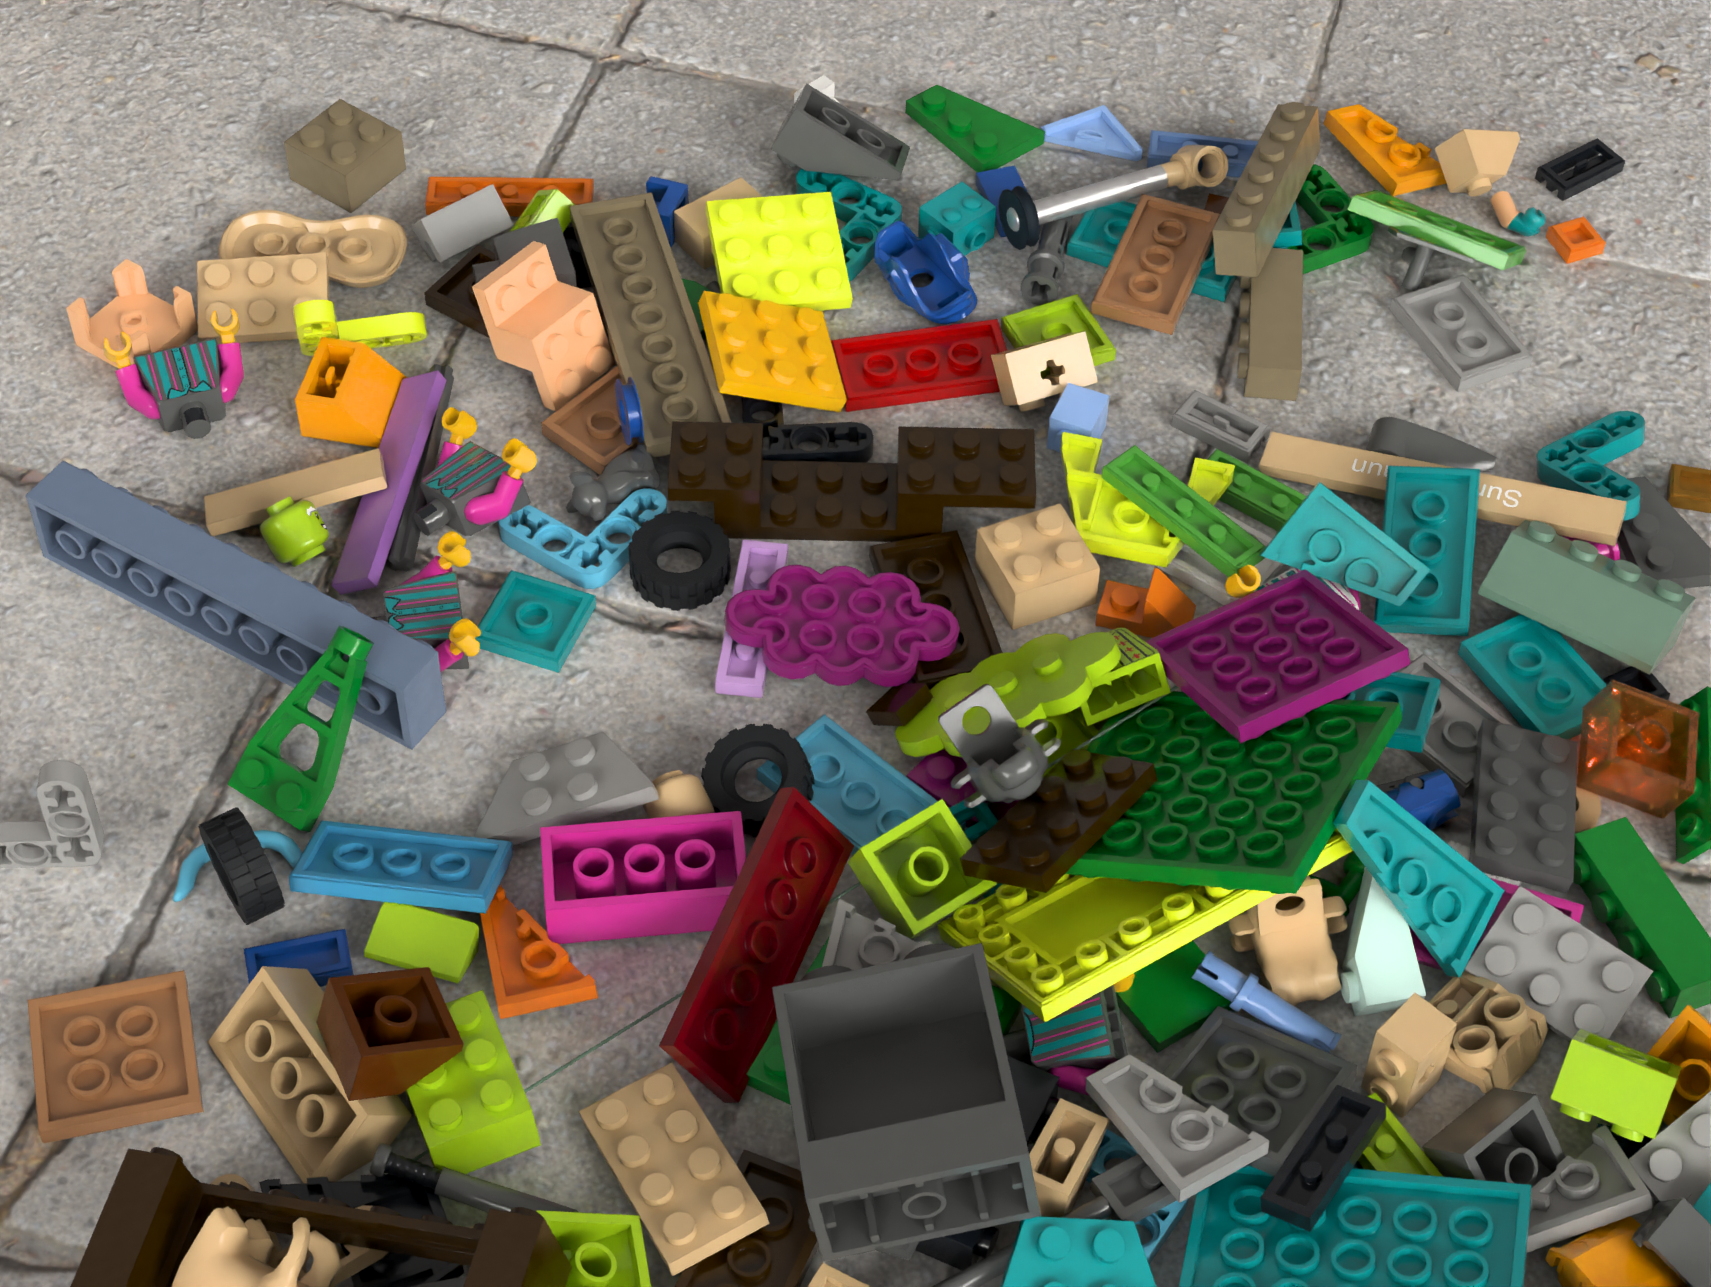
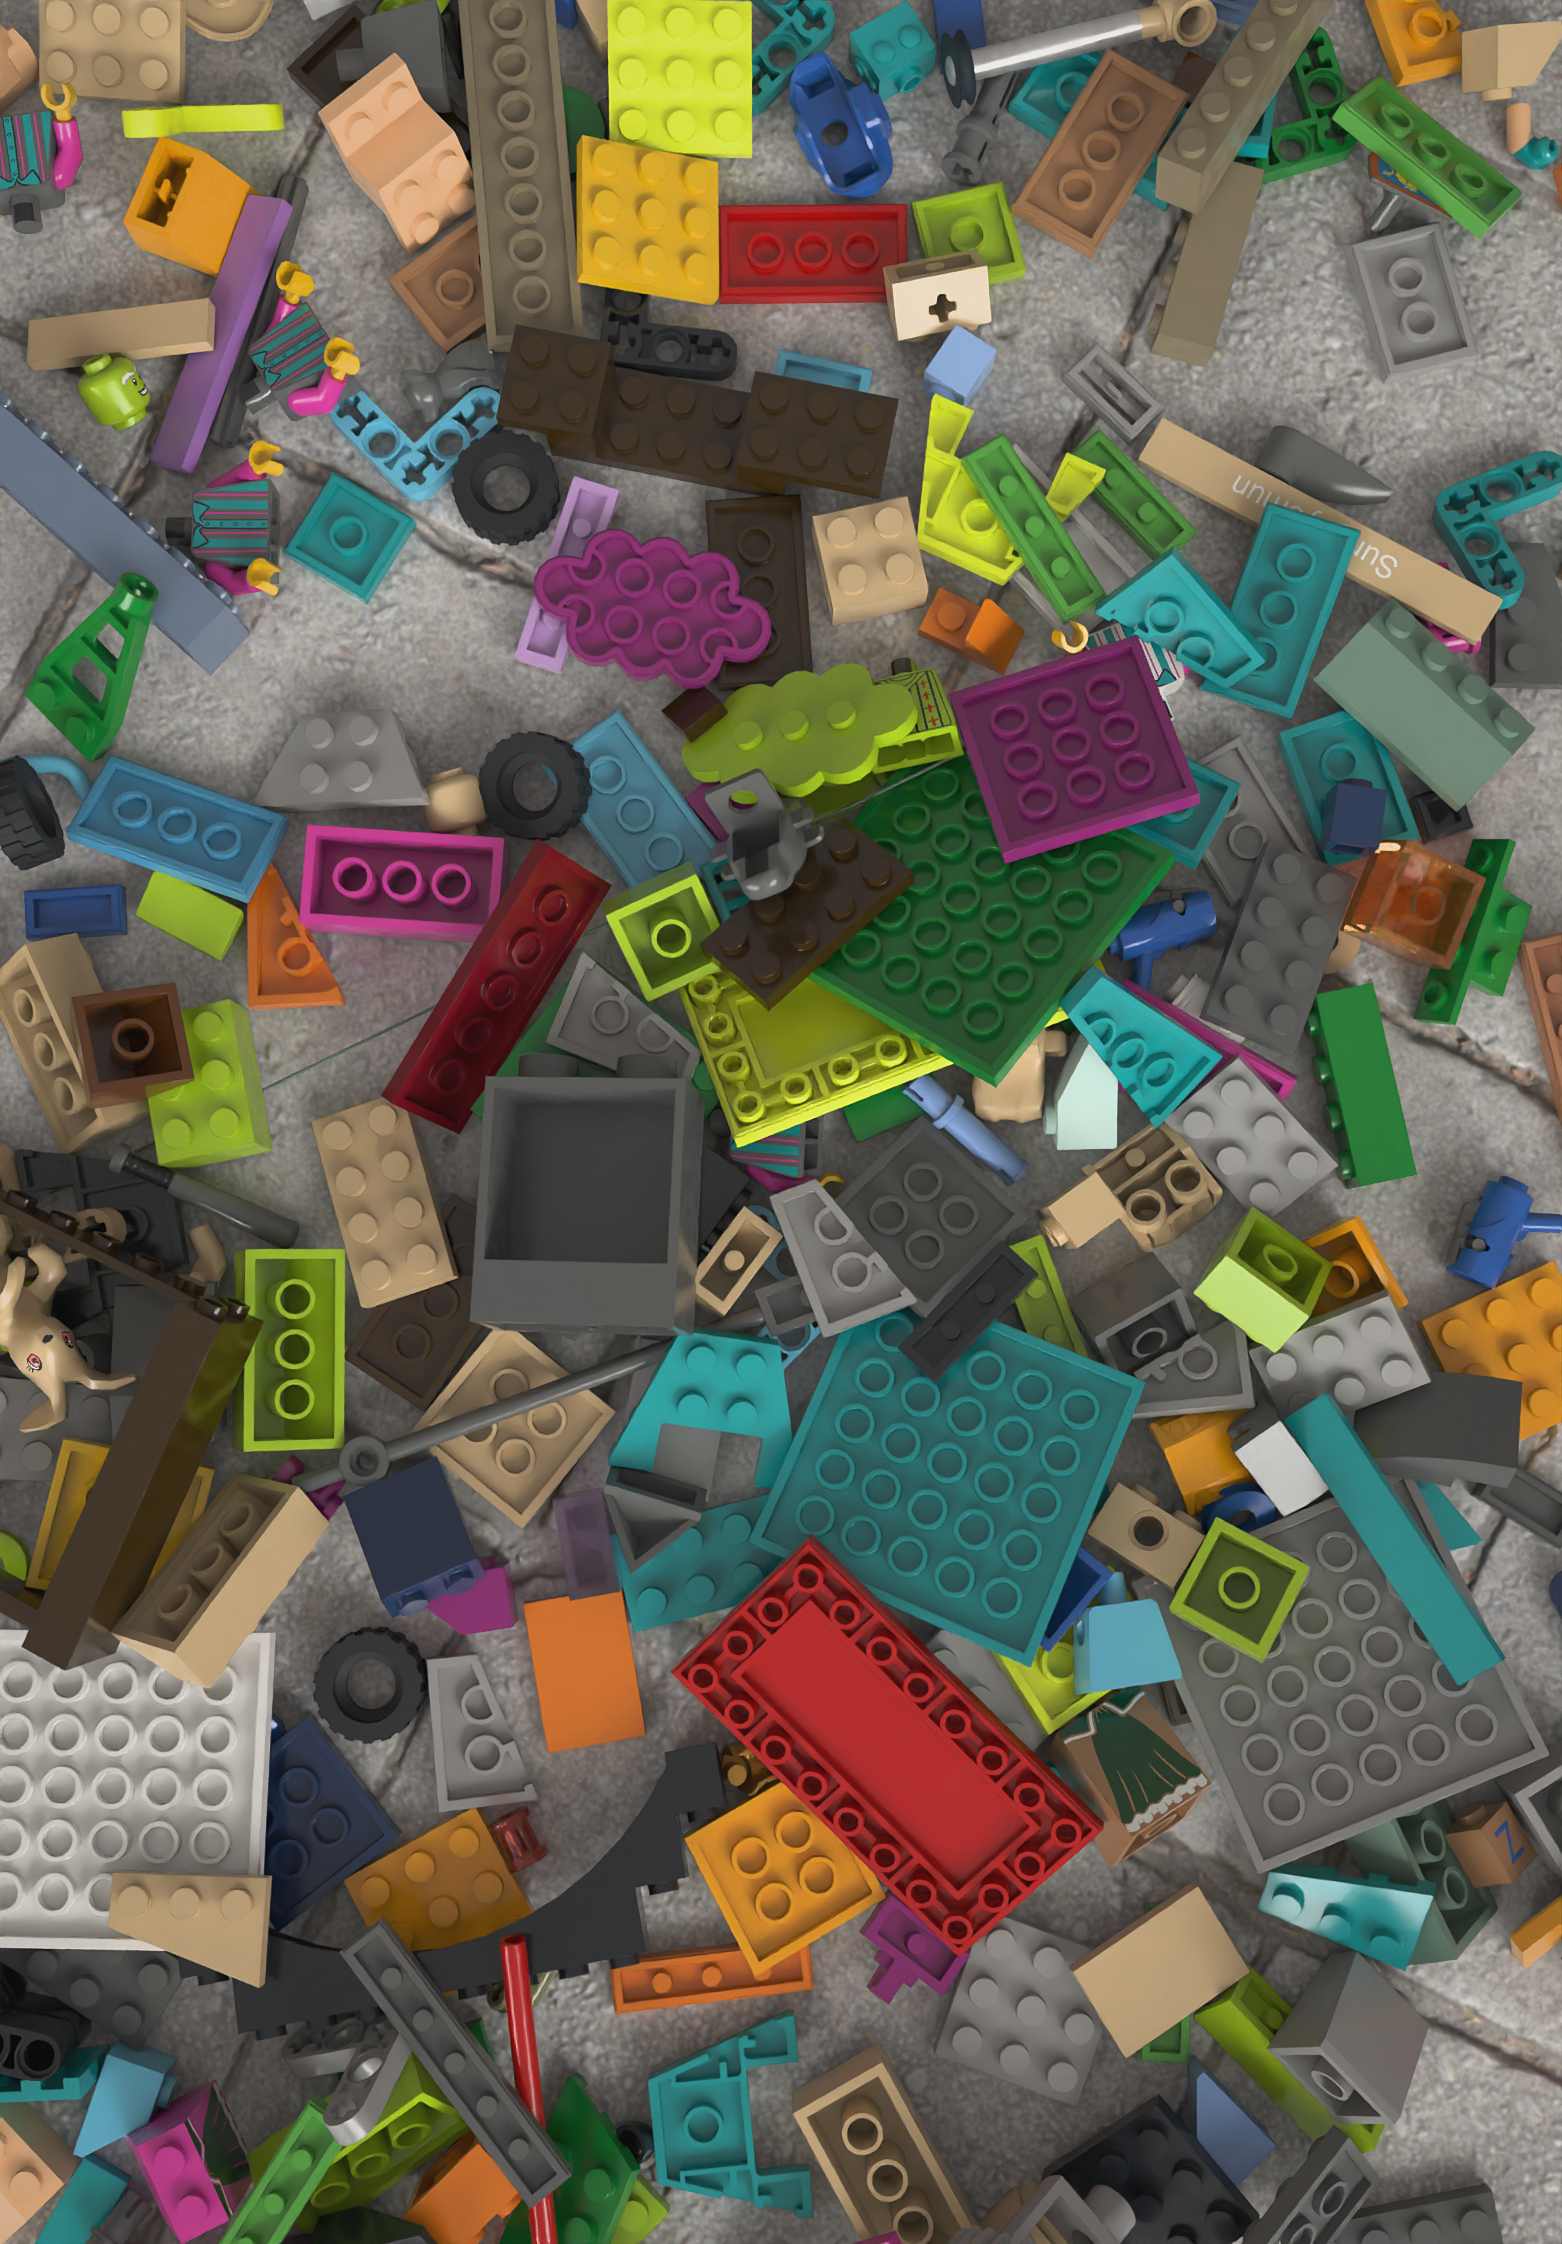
camera: 10 degrees right, 35 degrees up
(629, 411) = (474, 295): blue piece -> none
(1555, 689) = (1353, 818): none -> dark blue brick

